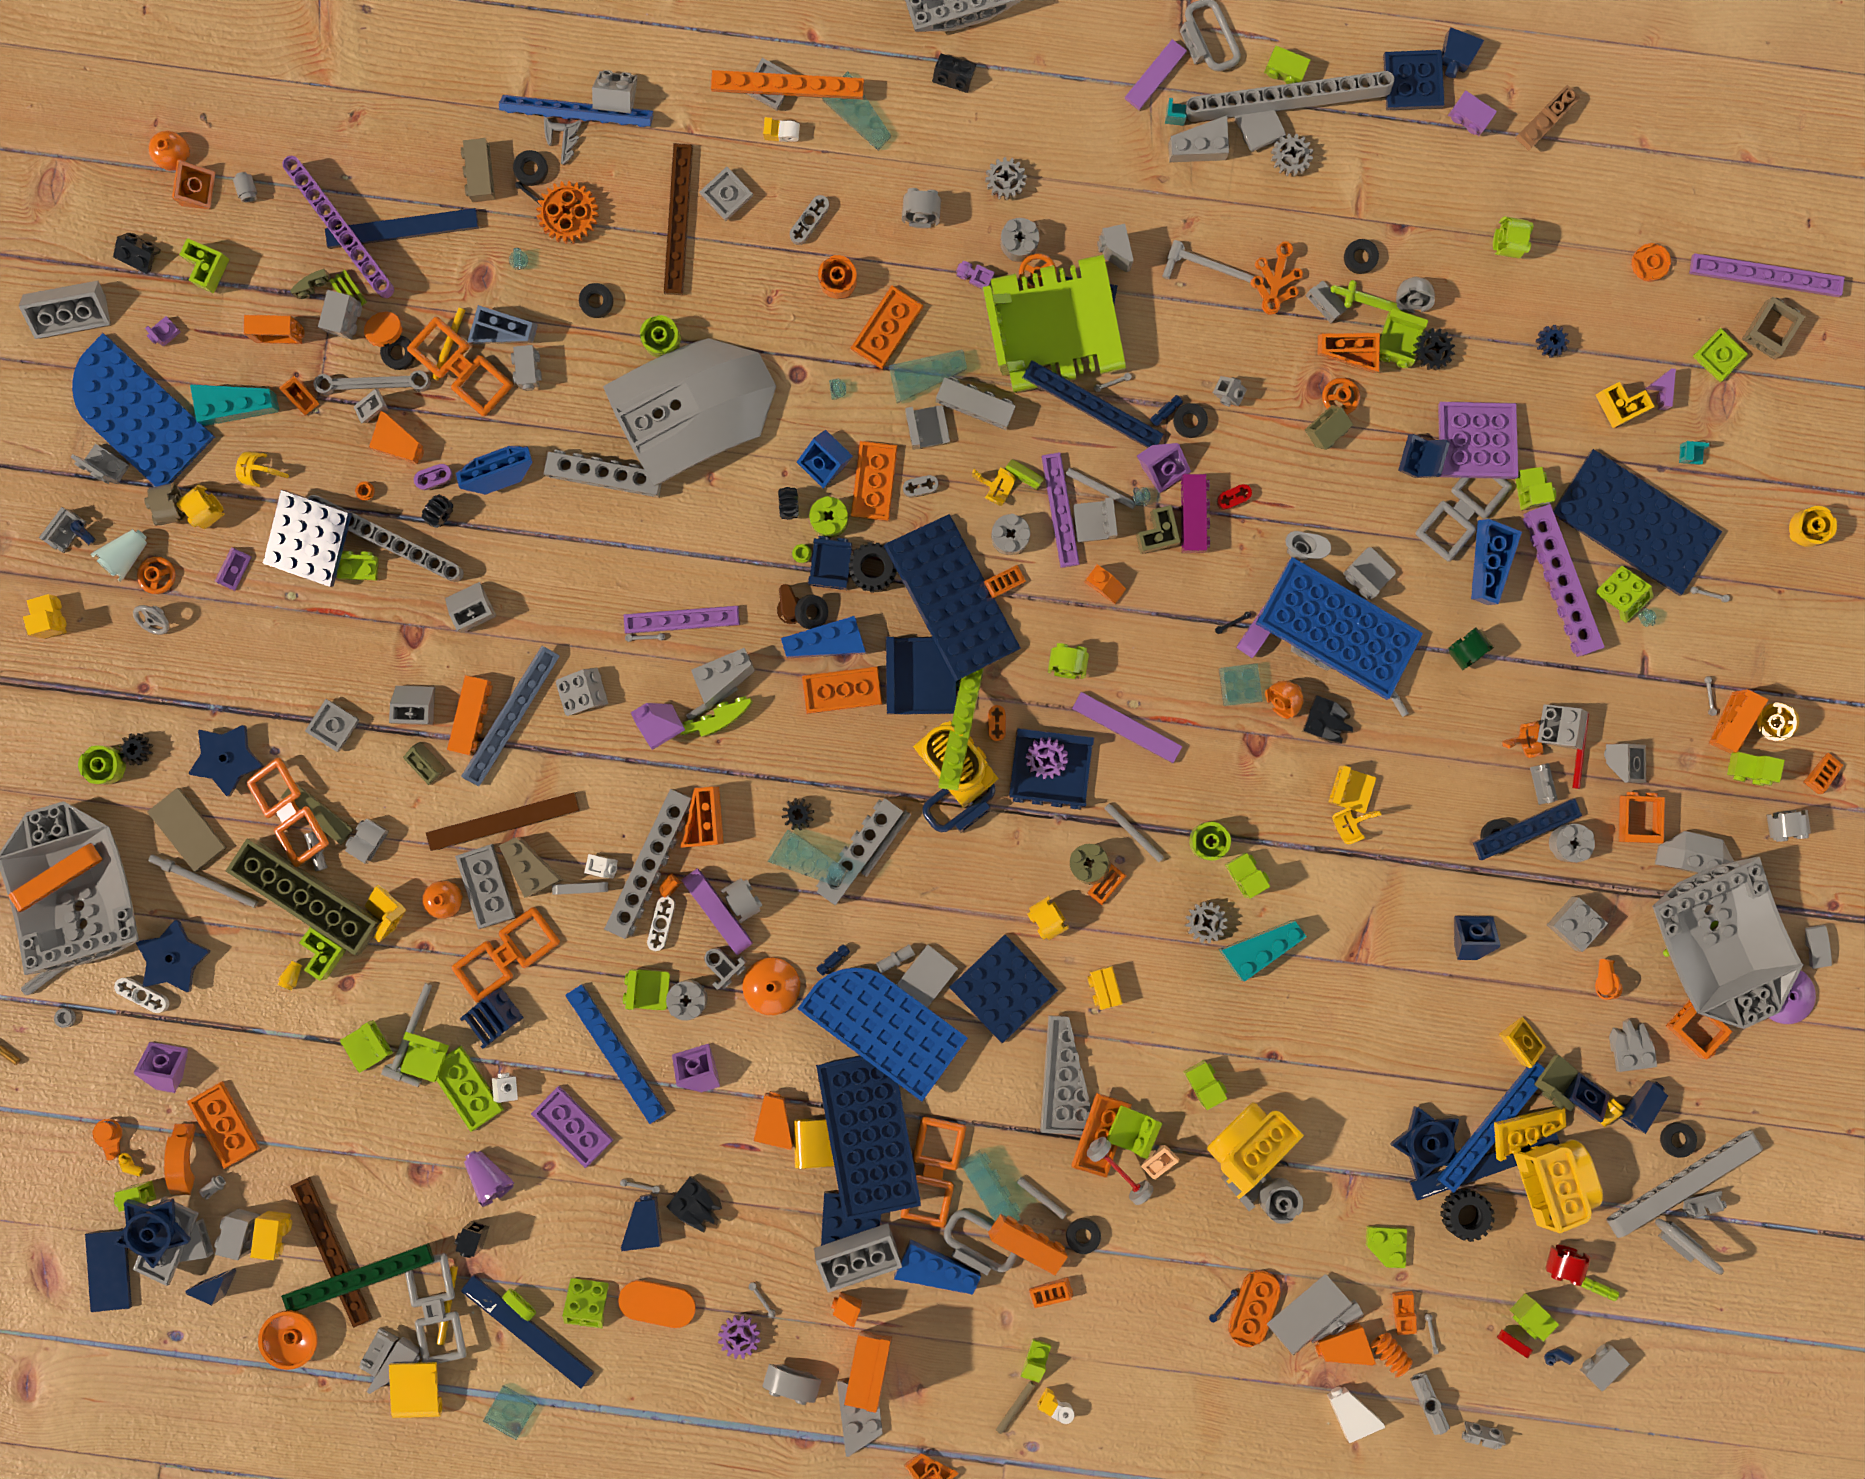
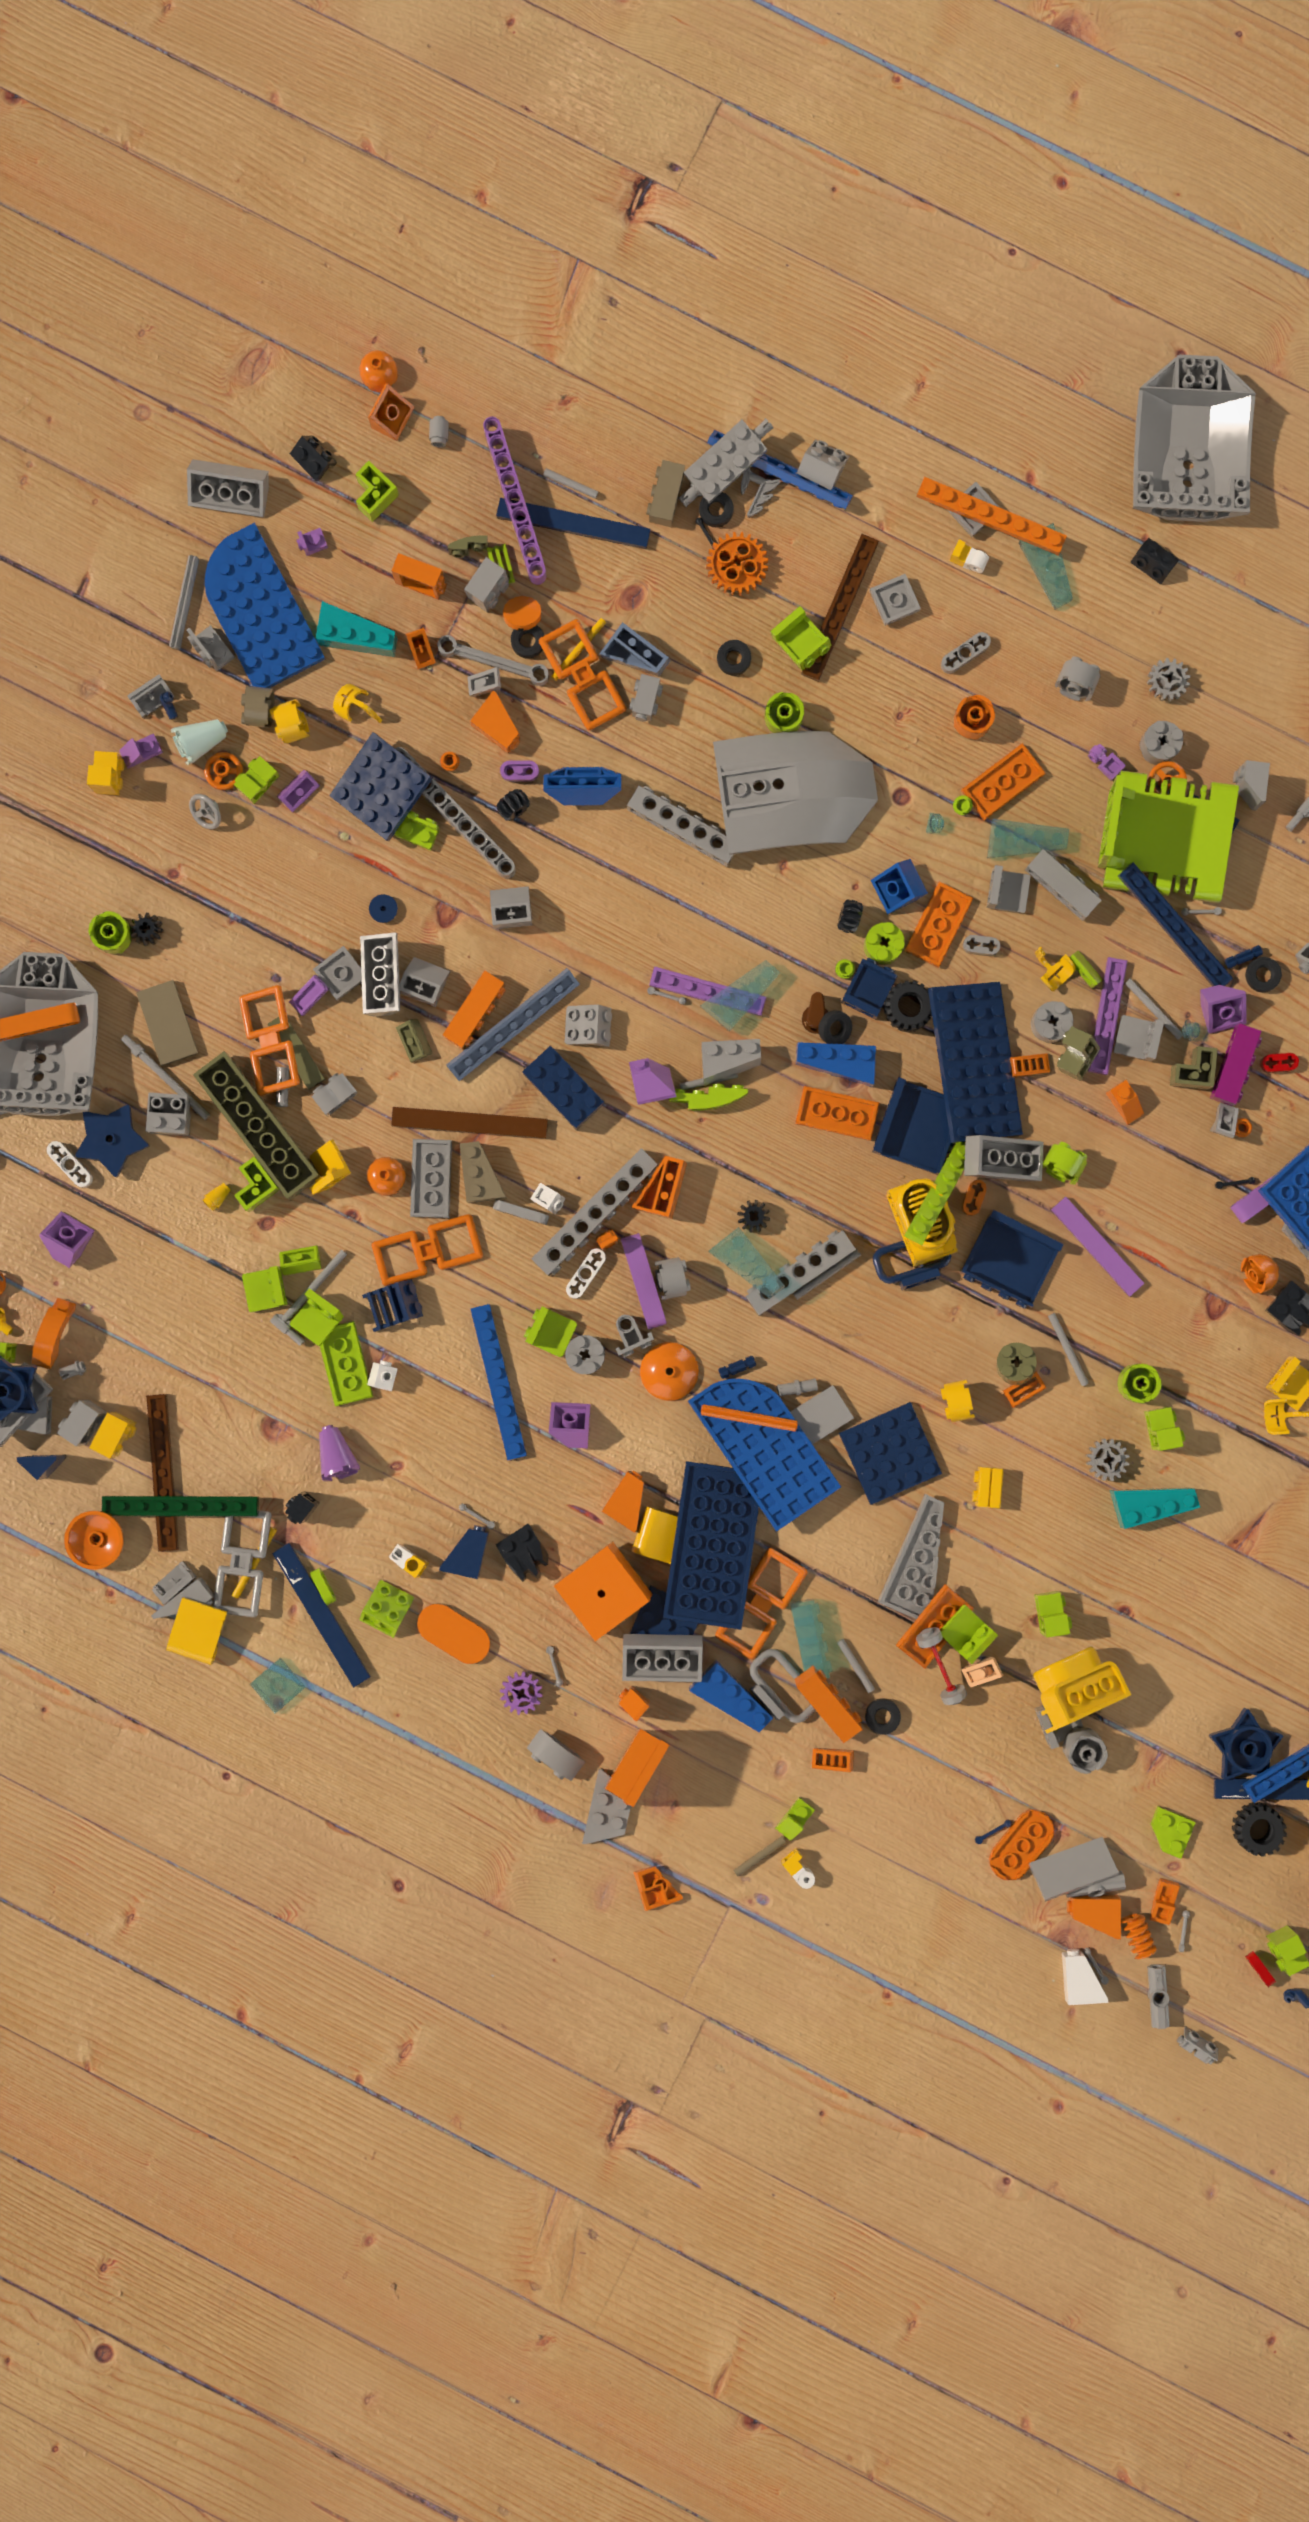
camera: 25 degrees right, 0 degrees up
(63, 430) = (184, 602): none -> light grey axle
(71, 584) = (139, 751): none -> medium lavender slope
(189, 572) = (256, 779): none -> lime brick
(217, 915) = (168, 1114): none -> light grey slope
(223, 1124) = (103, 1315): orange tile -> none
(238, 758) = (238, 978): dark blue plate -> none
(310, 756) = (309, 995): none -> medium lavender tile
(351, 650) = (383, 908): none -> dark blue piece
(367, 714) = (380, 974): none -> light grey slope
(386, 192) = (570, 483): none -> light grey bar
(390, 1007) = (300, 1260): none -> lime slope
(518, 259) = (674, 592): clear light blue plate -> none
(521, 121) = (725, 461): none -> light grey plate
(572, 1126) = (432, 1436): medium lavender tile -> none
(578, 758) = (563, 1087): none -> dark blue brick
(590, 1252) = (408, 1561): none -> leg
(651, 261) = (800, 639): none -> lime panel
(711, 616) = (737, 998): none -> clear light blue wing
(781, 1215) = (603, 1591): none -> orange container
(856, 362) = (962, 805): none -> lime plate
(859, 1004) = (747, 1417): none -> orange axle
(1009, 678) = (1003, 1158): none -> light grey brick
(1040, 752) = (1015, 1253): medium lavender gear -> none
(1046, 555) = (1079, 1053): none -> olive brick
(1203, 568) = (1225, 1121): none -> light grey slope
(1221, 563) = (1247, 1125): none -> orange plate
(1240, 684) = (1221, 1244): clear light blue plate -> none
(1374, 1405) = (1104, 1980): none -> light grey hinge

